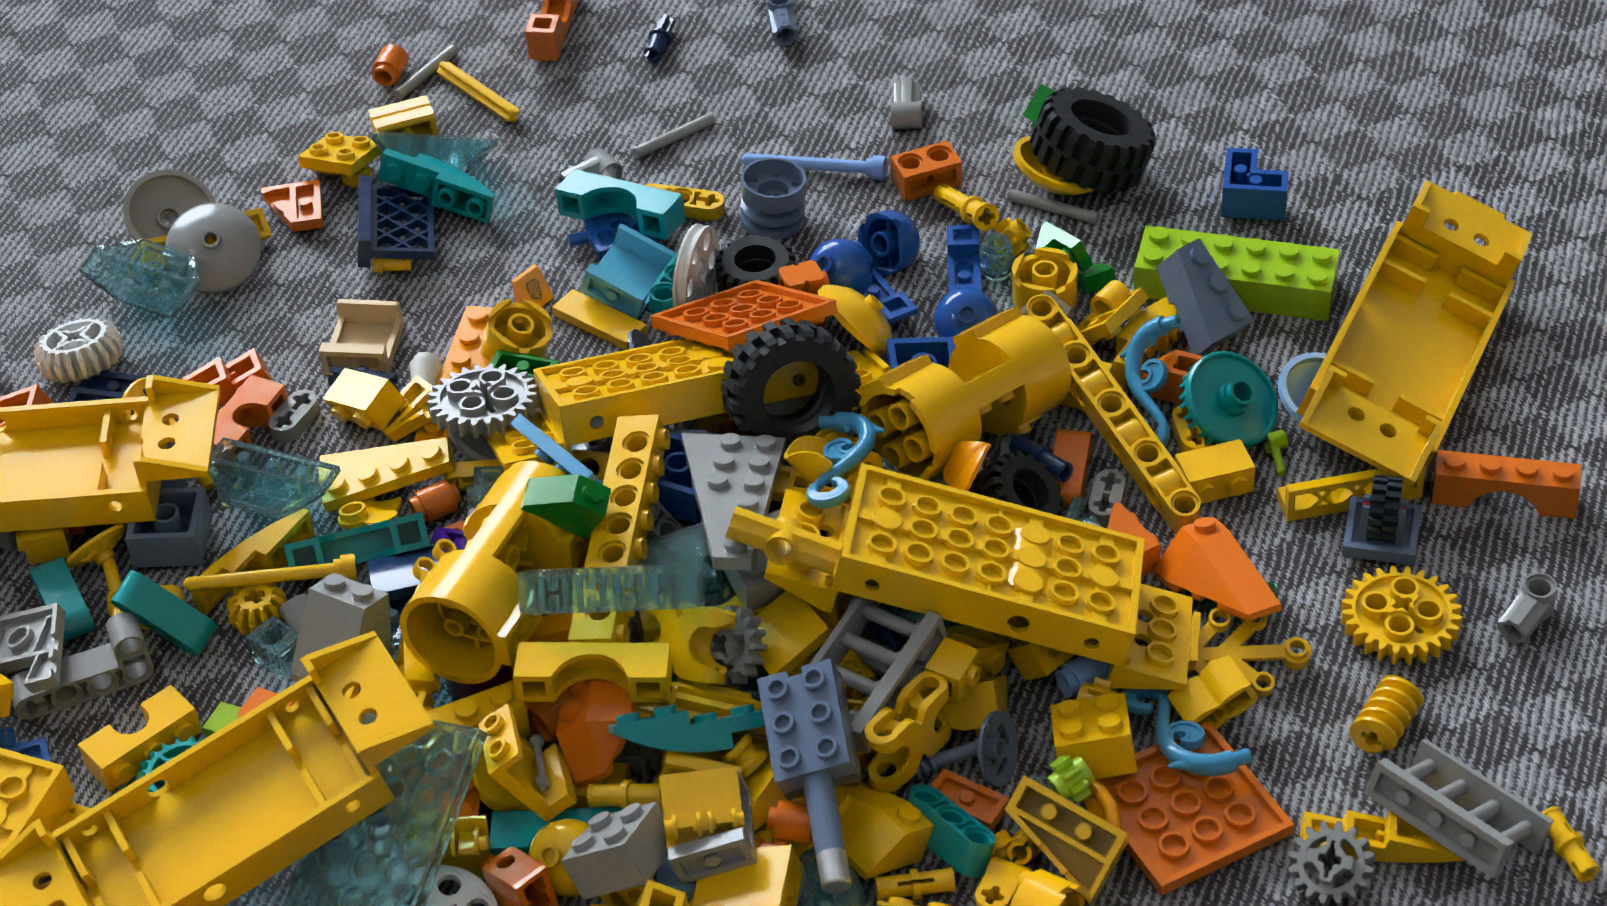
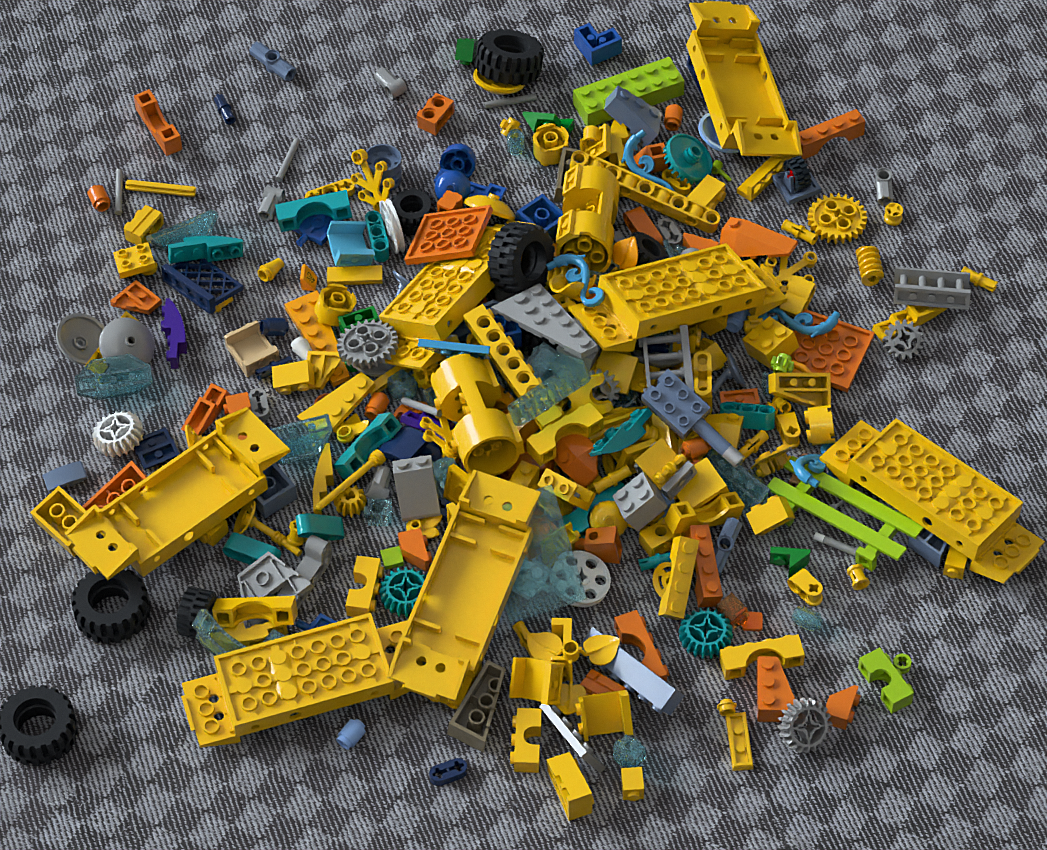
camera: 40 degrees left, 10 degrees up
(292, 273) = (174, 333): none -> dark purple slope
(417, 325) = (274, 326): none -> dark blue brick
(498, 254) = (269, 270): none -> yellow cone
(567, 502) = (489, 365): green slope -> none
(733, 197) = (373, 183): none -> yellow plant
(768, 536) = (605, 328): yellow piece -> none
(873, 167) = (406, 125): light blue piece -> none
(958, 665) = (700, 342): yellow brick -> none
(962, 310) = (533, 181): blue cylinder -> none
(963, 257) = (502, 157): blue slope -> none
(971, 208) = (482, 123): yellow pin -> none
(1060, 468) = (628, 230): dark blue pin -> none
(1273, 339) = (673, 117): none -> orange brick
(1326, 617) = (799, 232): none -> yellow pin
(1507, 659) = (893, 209): none -> yellow wheel

